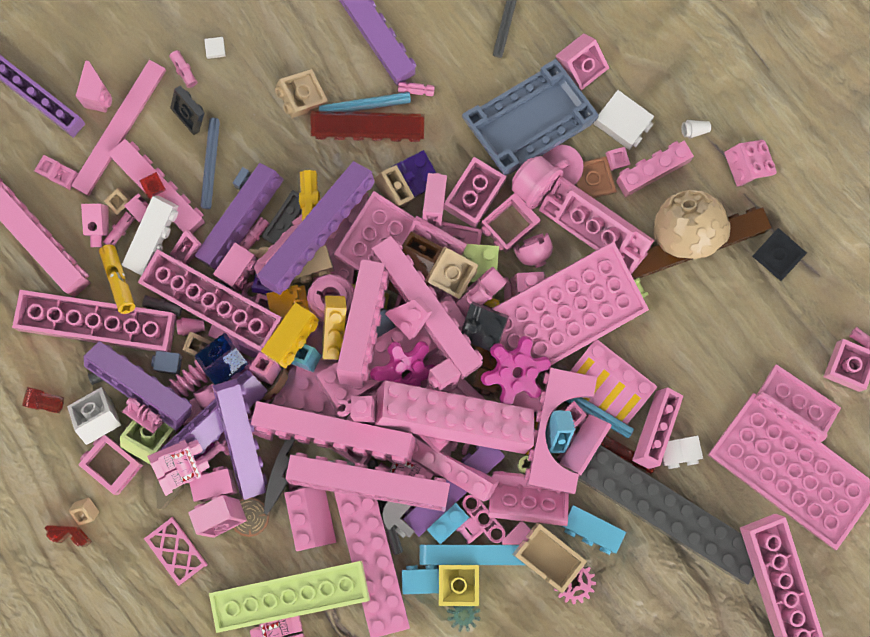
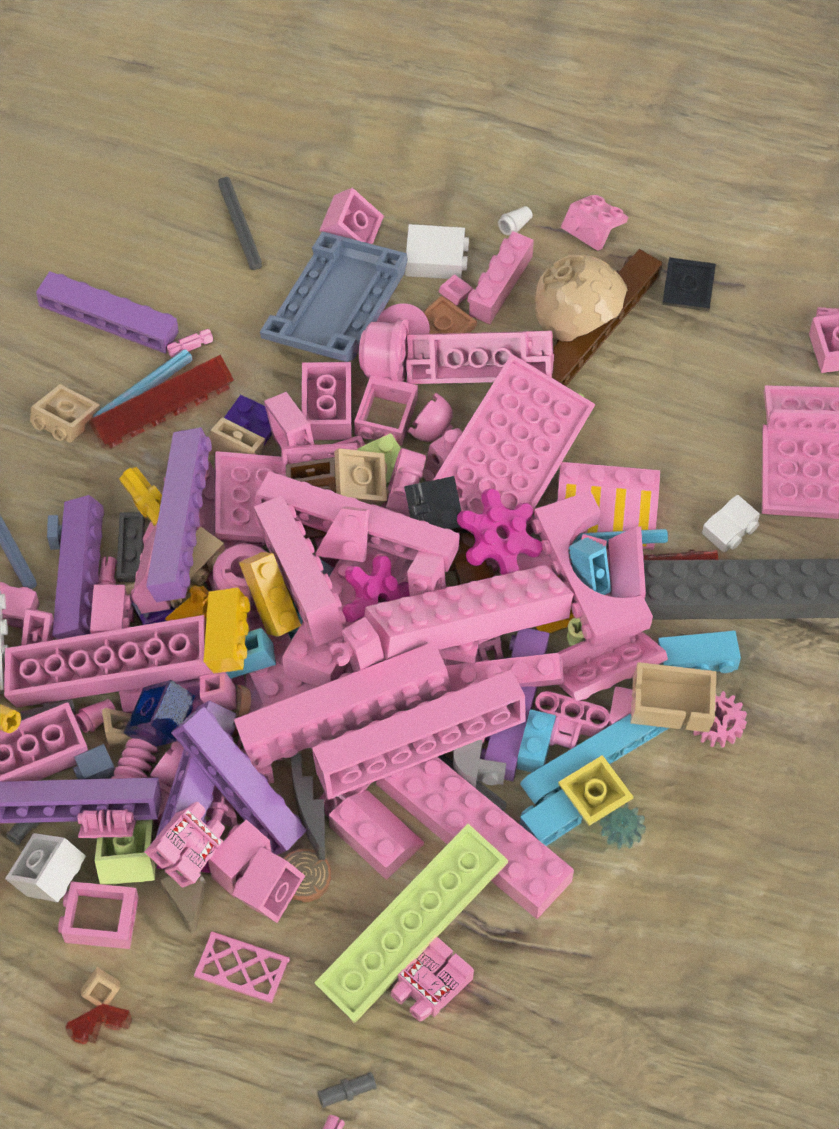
camera: 30 degrees left, 20 degrees down
(657, 428) = (691, 510): bright pink brick -> none

